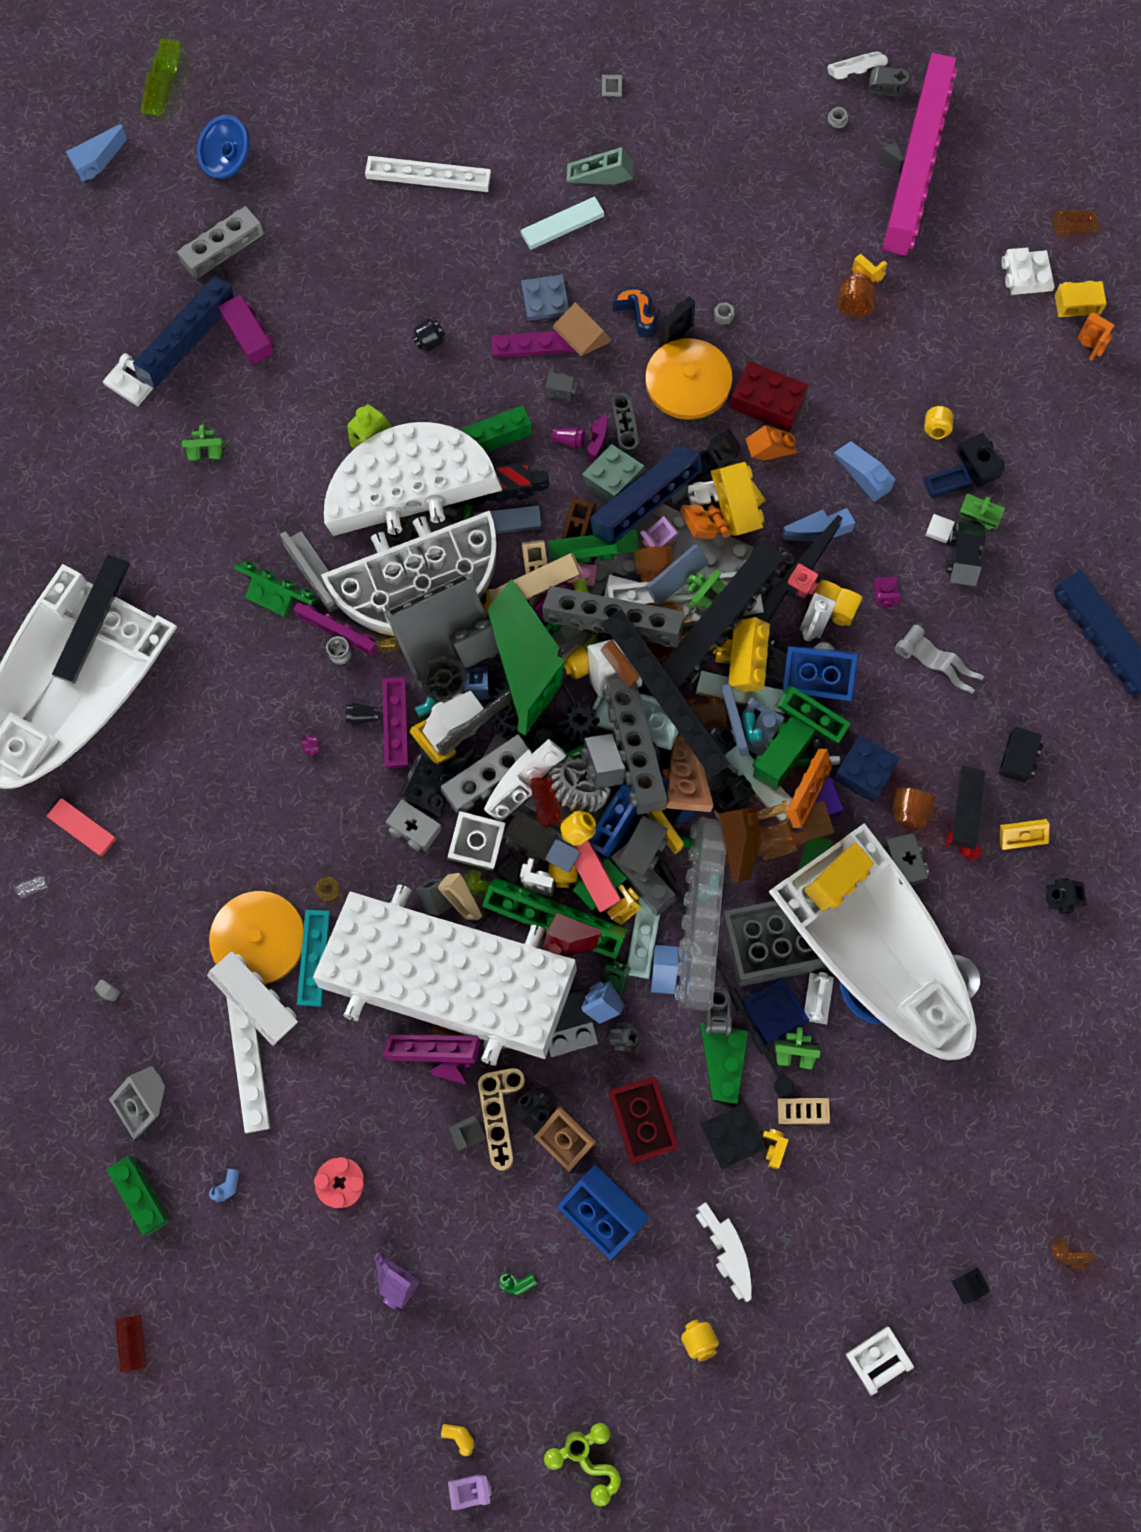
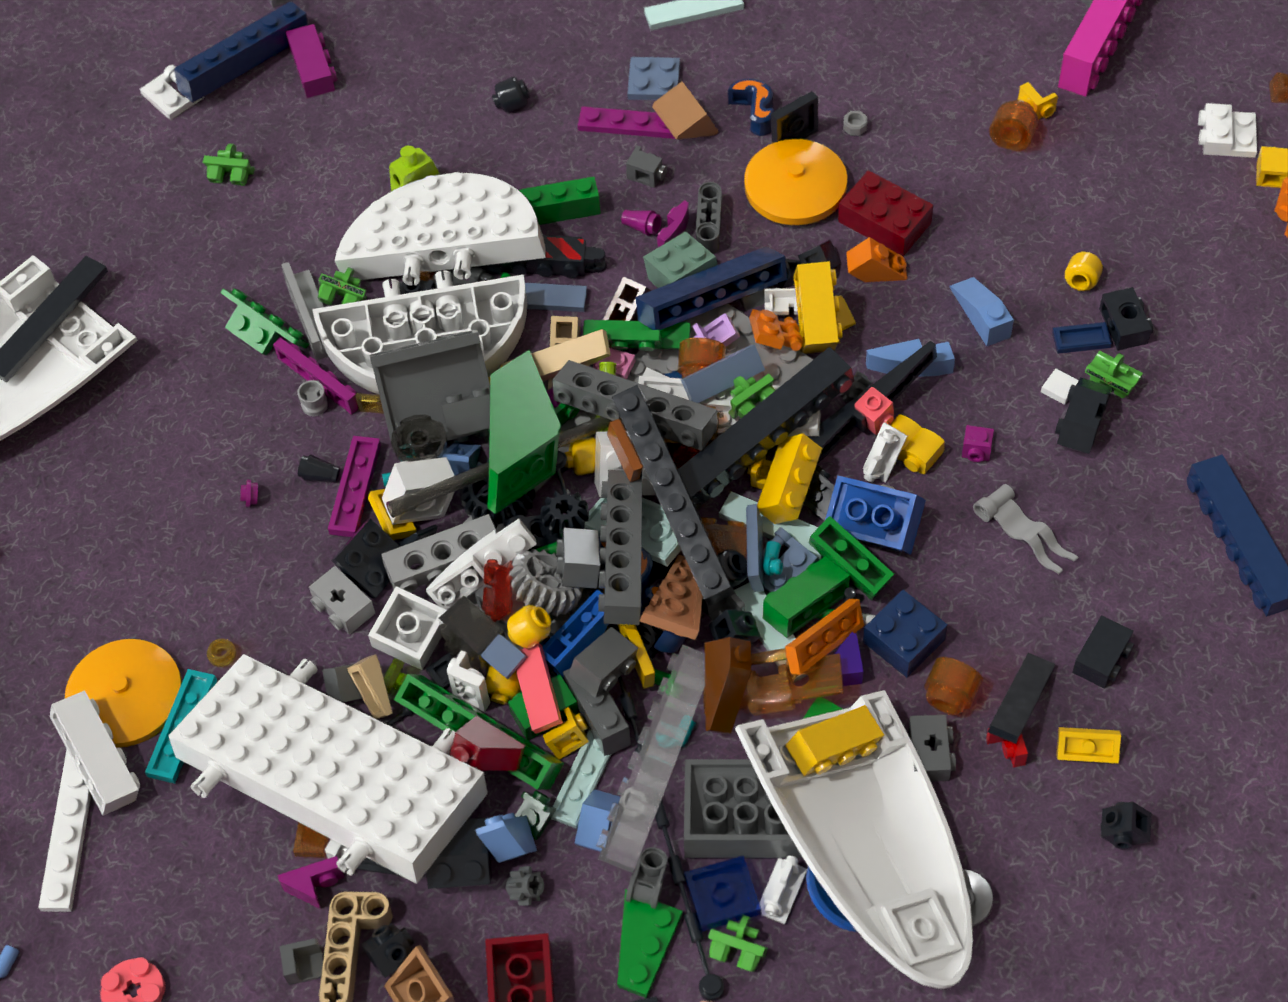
camera: 15 degrees right, 15 degrees down
(346, 550) = (330, 287): none -> bright green hips
(432, 1048) = (287, 850): magenta plate -> none

